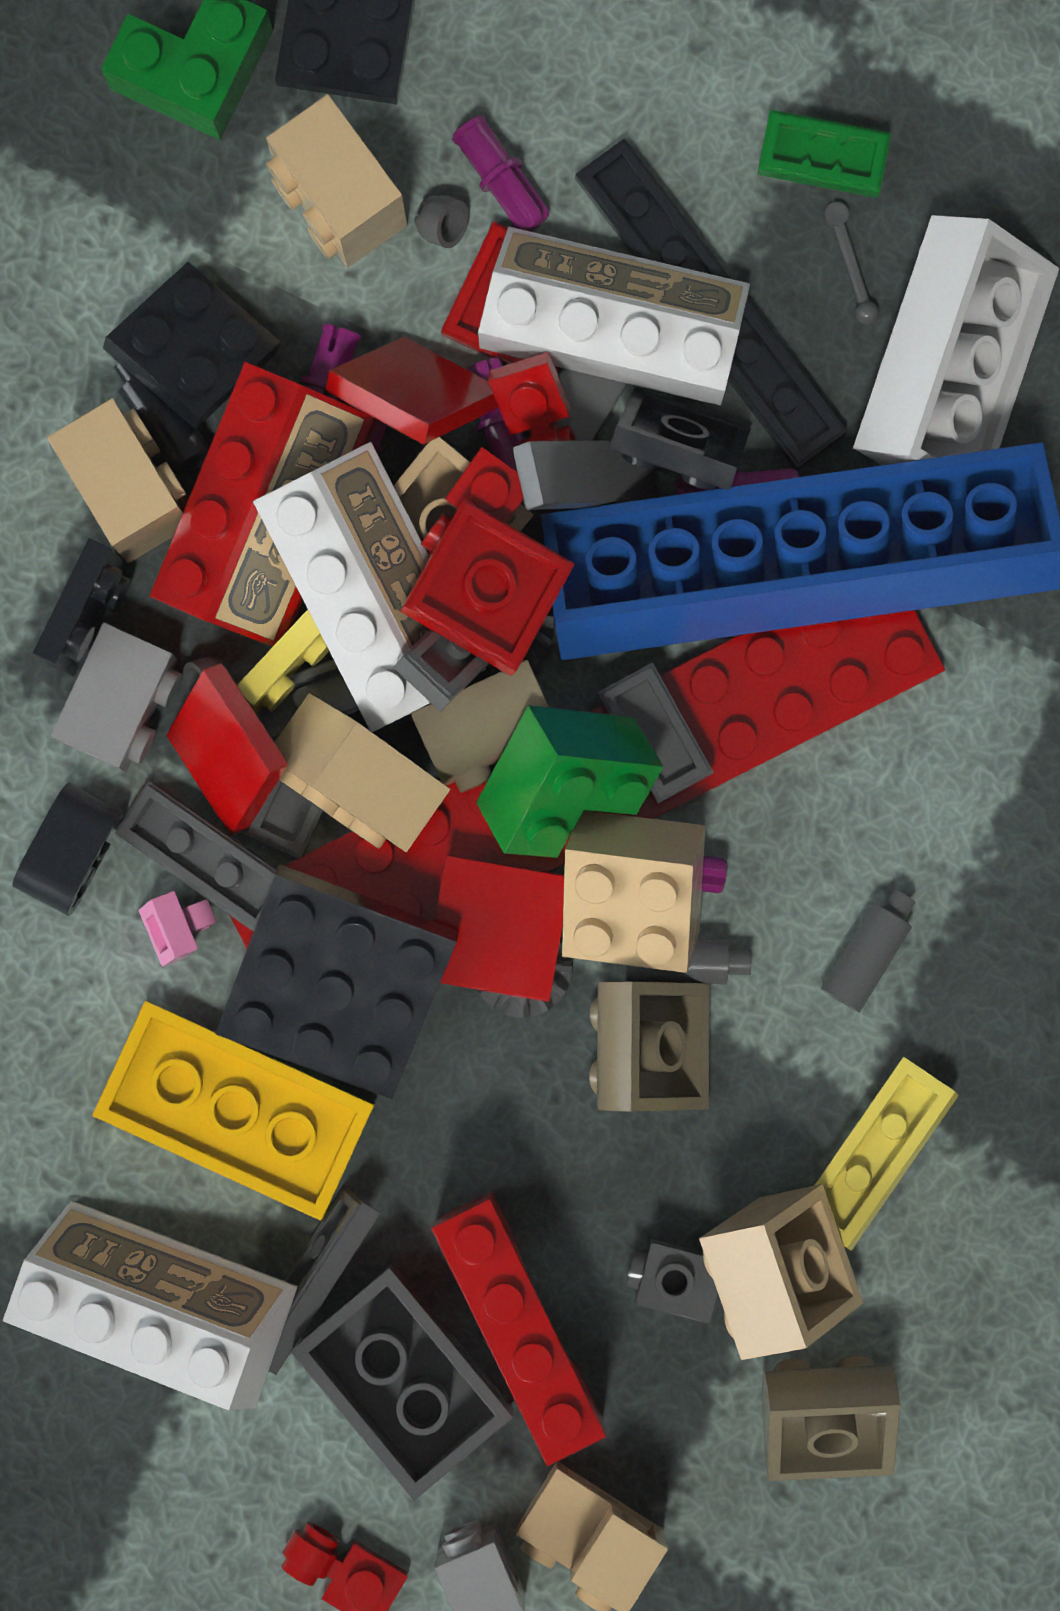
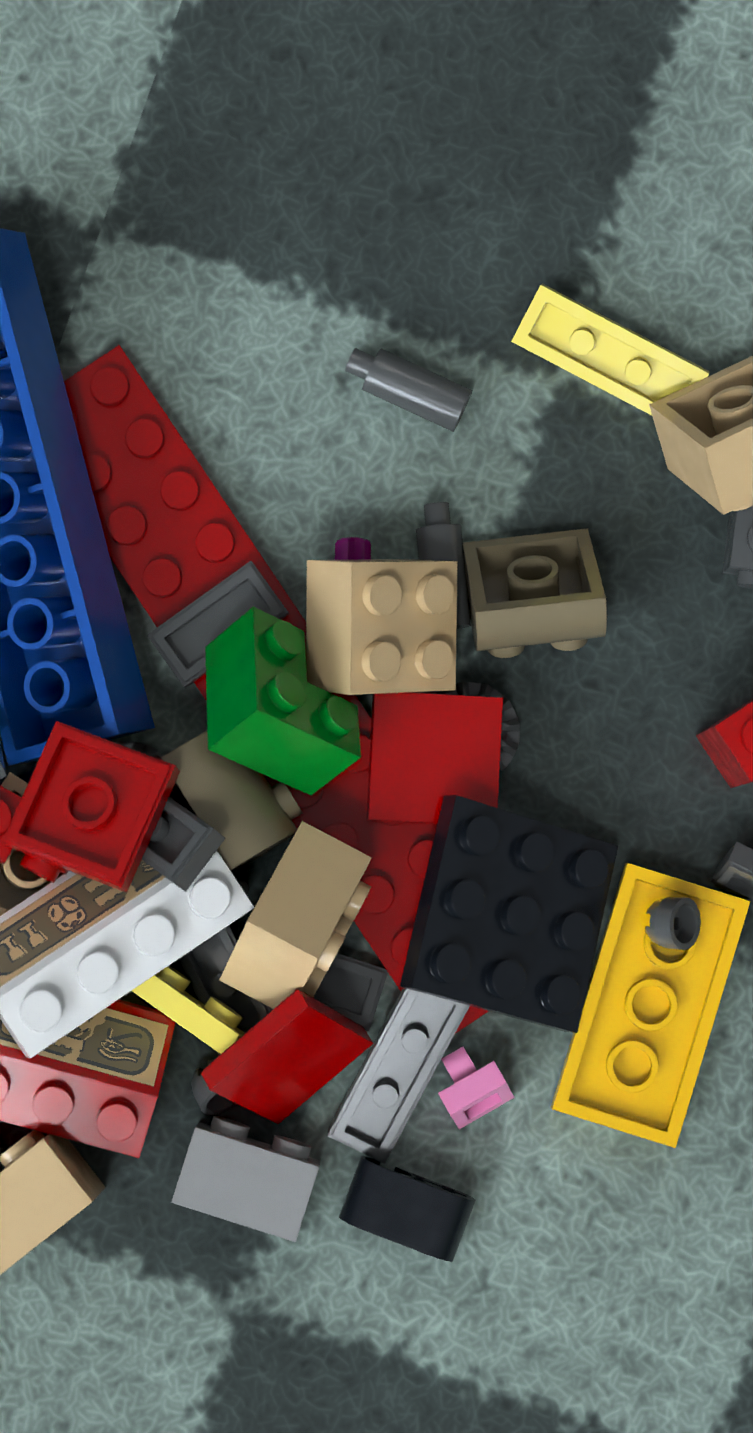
camera: 100 degrees left, 0 degrees up
(91, 589) = (137, 1218): black plate -> none
(306, 1153) = (674, 923): none -> dark grey hinge

